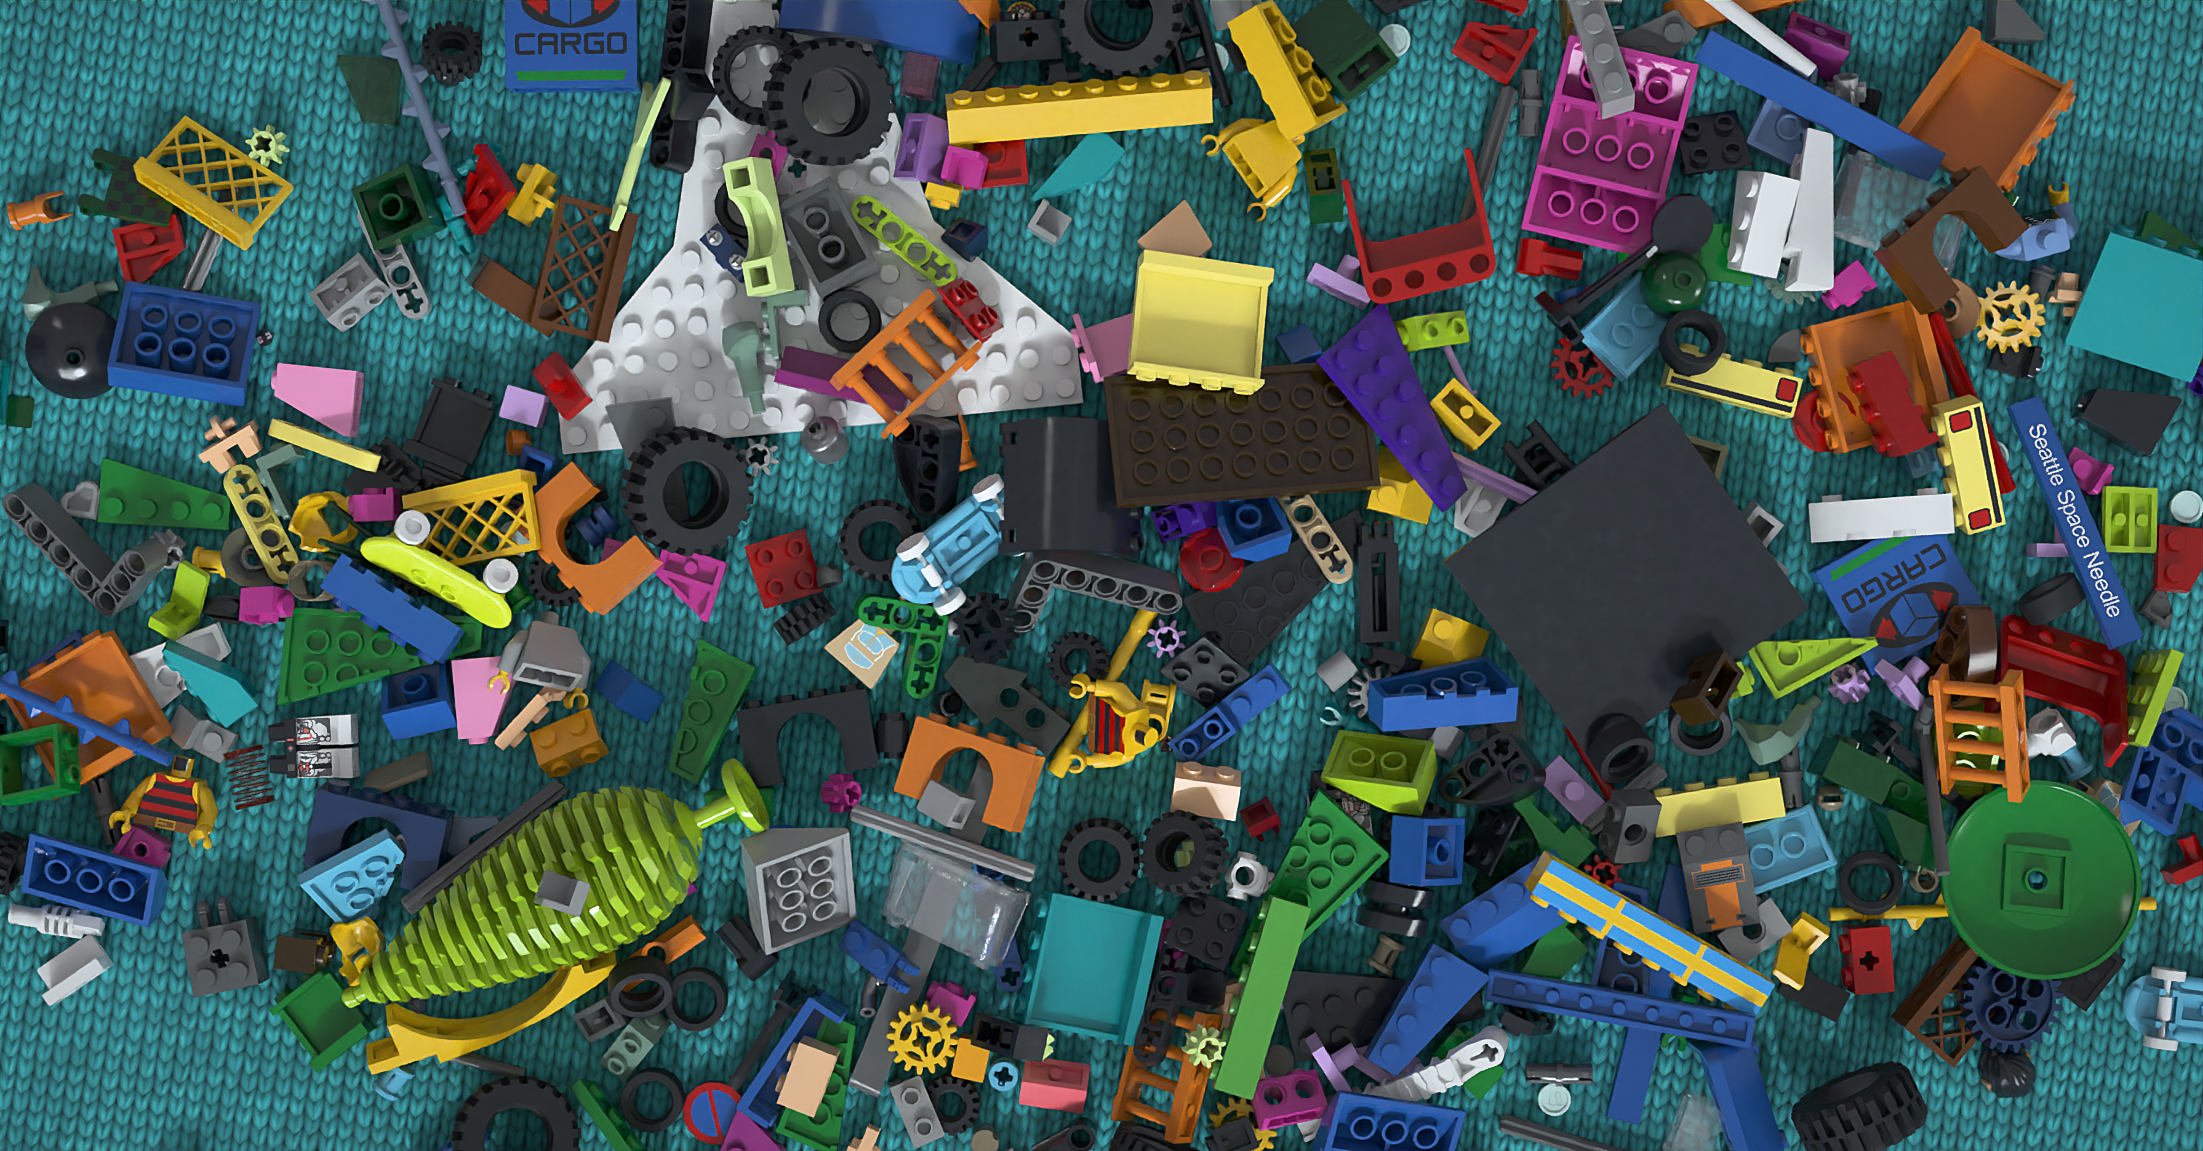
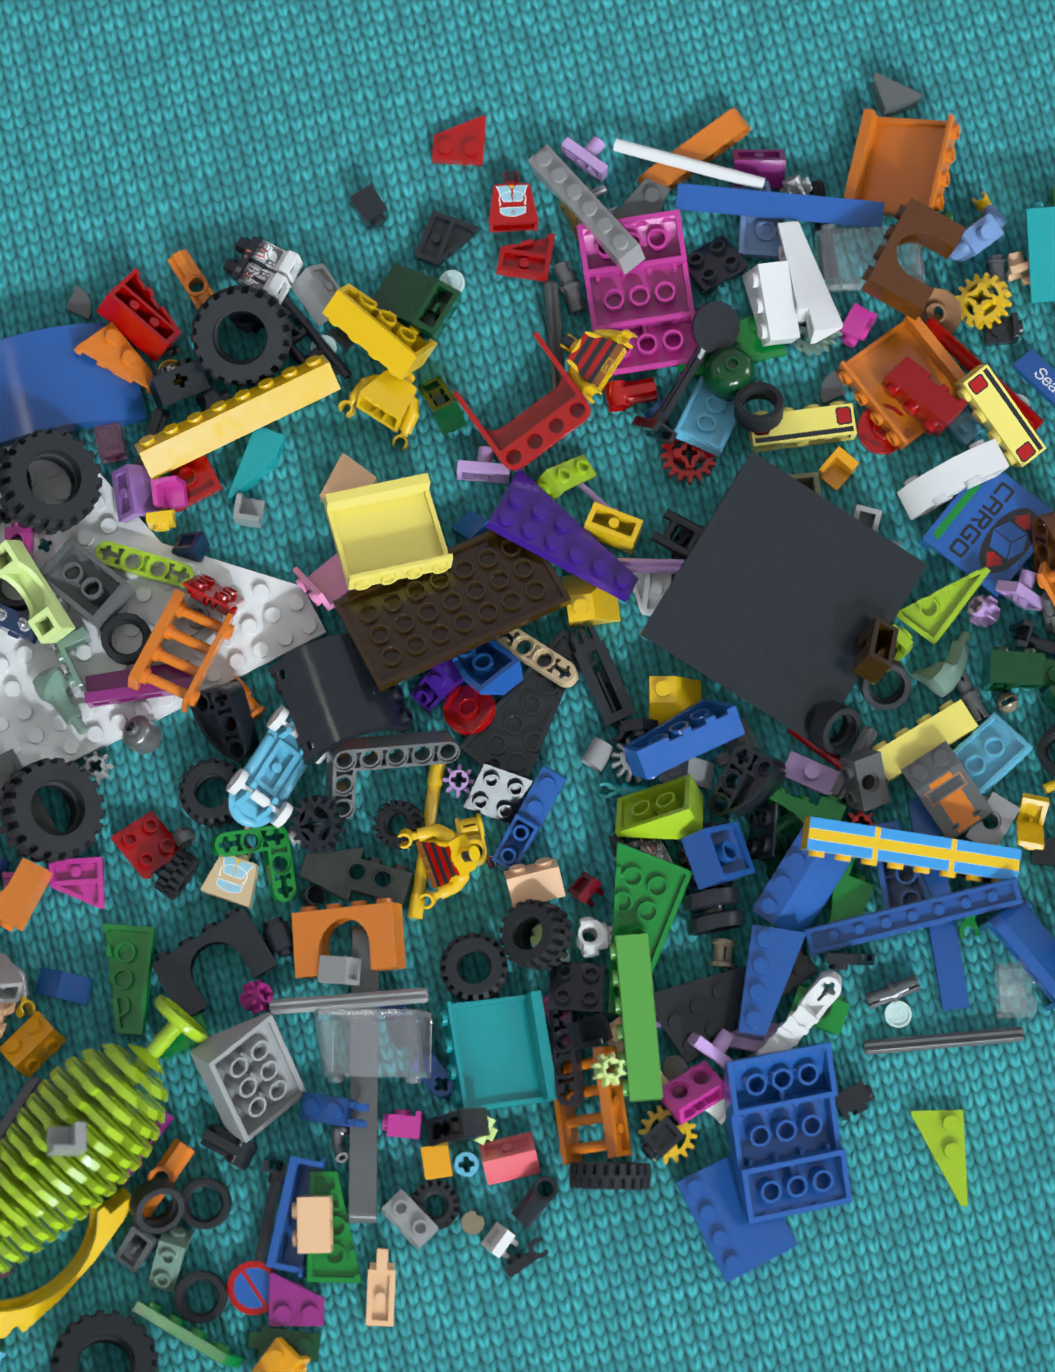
camera: 20 degrees left, 10 degrees down
(489, 1065) = (49, 1324): dark grey bar -> none
(909, 1041) = (402, 1149): yellow gear -> none
(1525, 207) = (595, 358): none -> torso
(1752, 447) = (837, 468): none -> light orange panel

